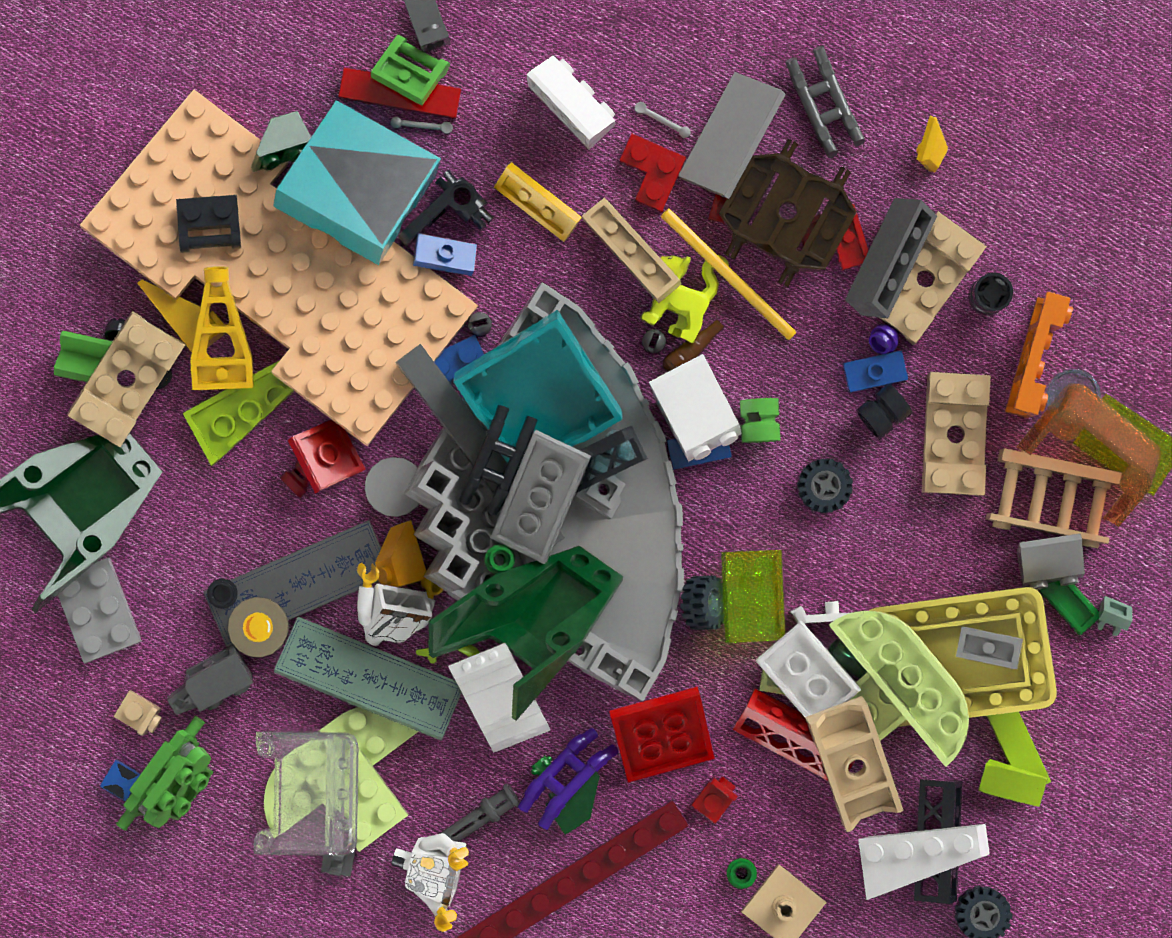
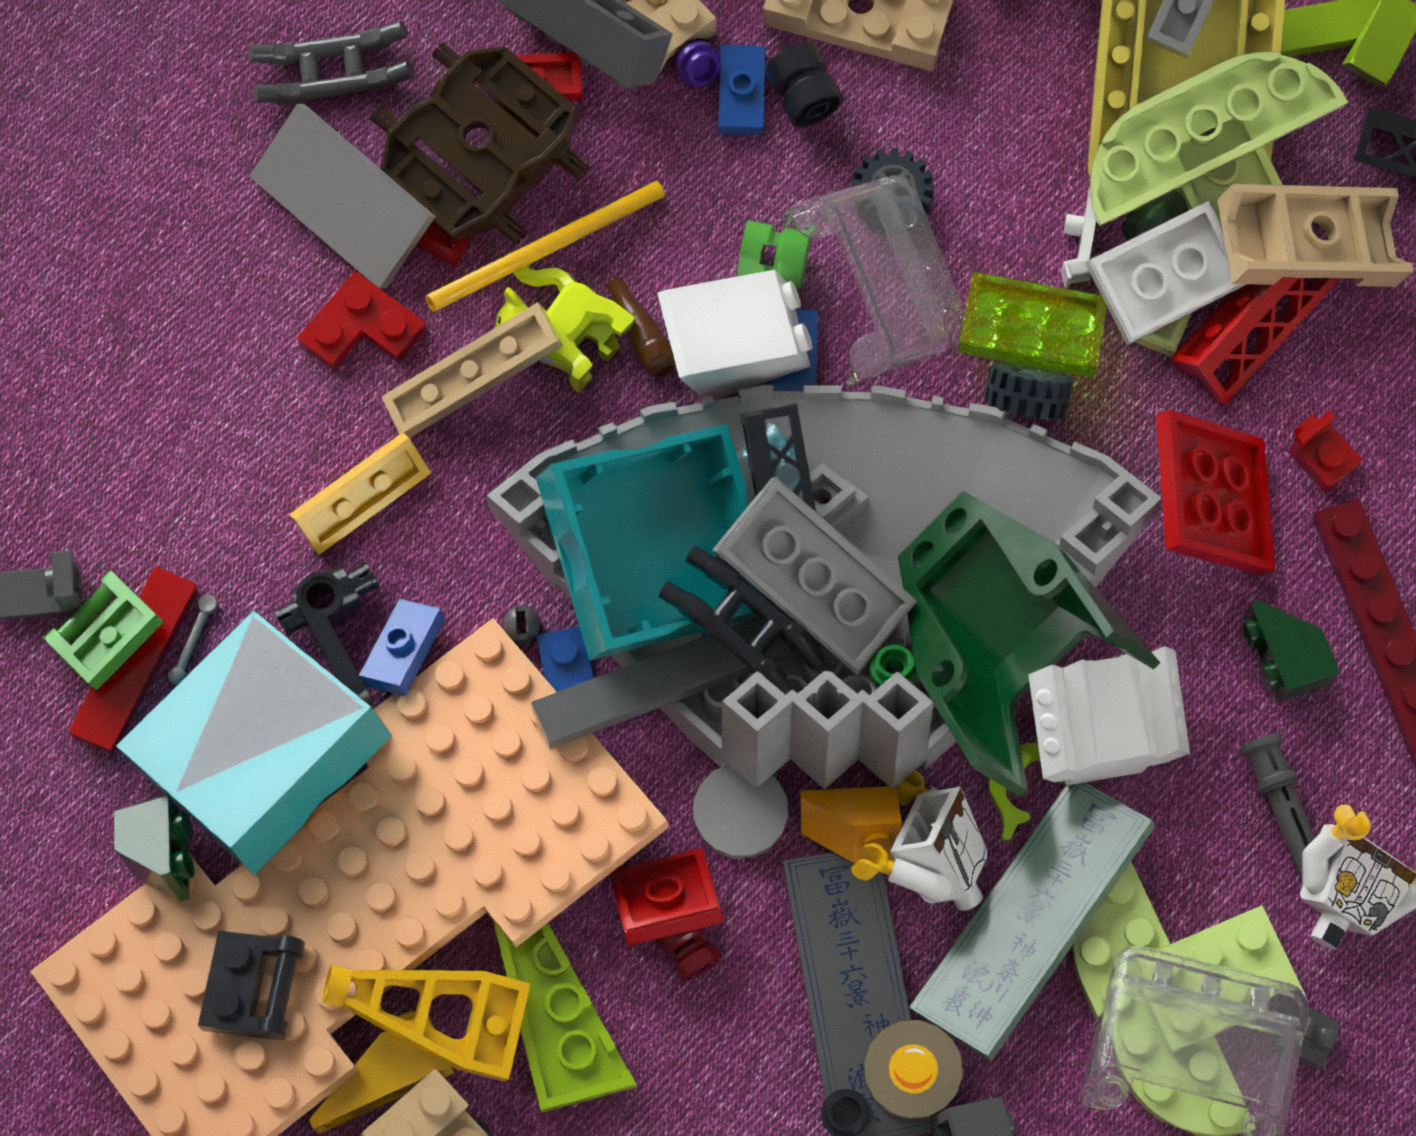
camera: 70 degrees left, 15 degrees down
(539, 766) = (1223, 691): green piece -> none
(565, 793) = (1276, 653): dark purple piece -> none
(571, 101) = (225, 409): white slope -> none
(640, 108) = (263, 319): light grey hinge -> none
(660, 343) = (610, 387): dark grey hinge -> none
(765, 497) = (894, 268): none -> clear windscreen

